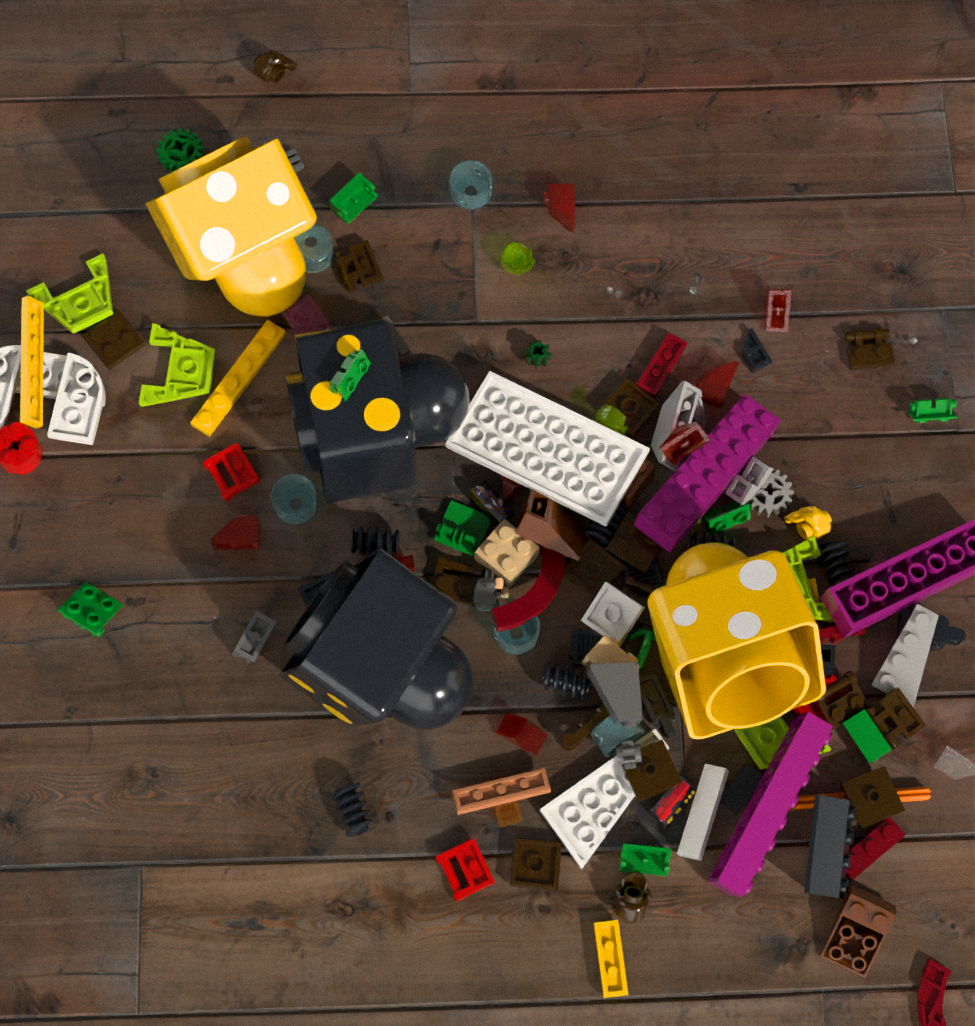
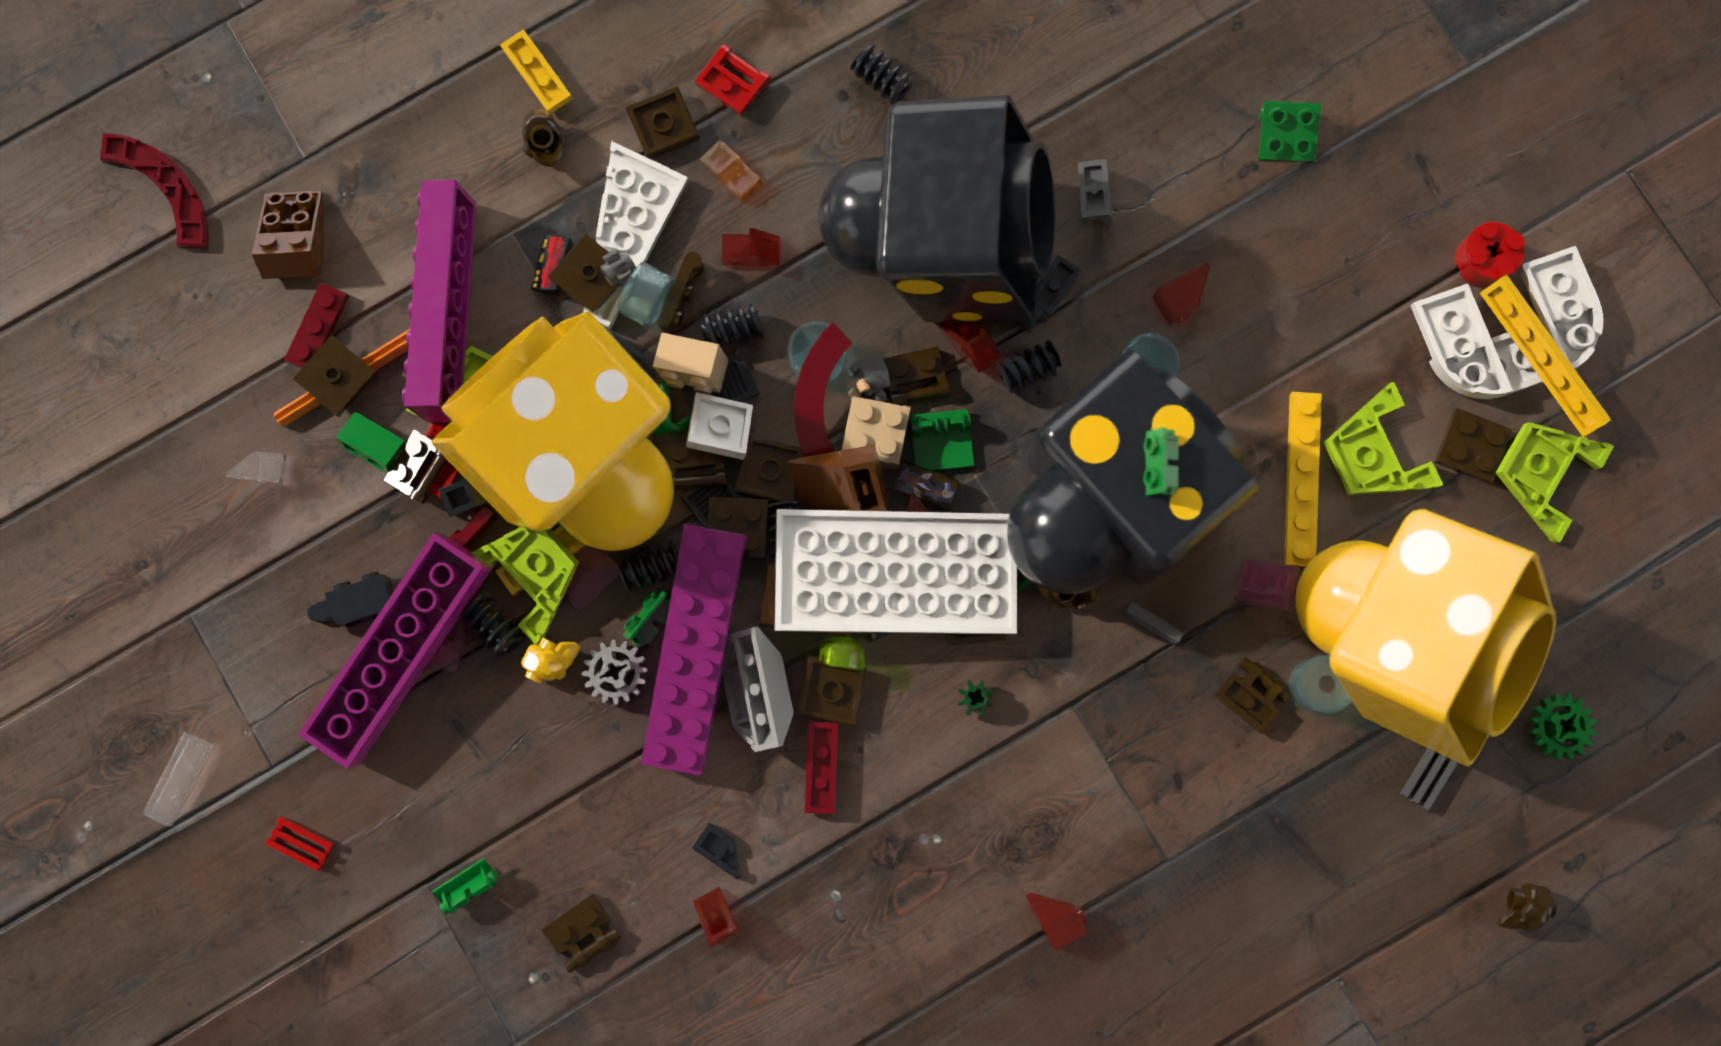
camera: 155 degrees right, 10 degrees up
(237, 467) = (1235, 371): red plate -> none
(353, 198) = (1314, 781): green hinge -> none
(463, 177) = (1200, 883): clear light blue piece -> none
(501, 791) = (737, 172): nougat tile -> none
(517, 259) = (1068, 809): clear neon green hair -> none
(619, 690) = (660, 319): dark grey slope -> none
(645, 859) = (551, 189): green hinge -> none
(684, 441) = (740, 662): clear red slope -> none
(703, 812) = (513, 268): white tile -> none
(716, 383) = (742, 777): clear red slope -> none
(741, 788) = (485, 317): black tile -> none
(748, 484) = (641, 666): light grey slope -> none
(830, 847) = (355, 291): black slope -> none
(902, 715) = (346, 489): dark brown plate -> none
(908, 655) = (363, 551): light grey wing -> none

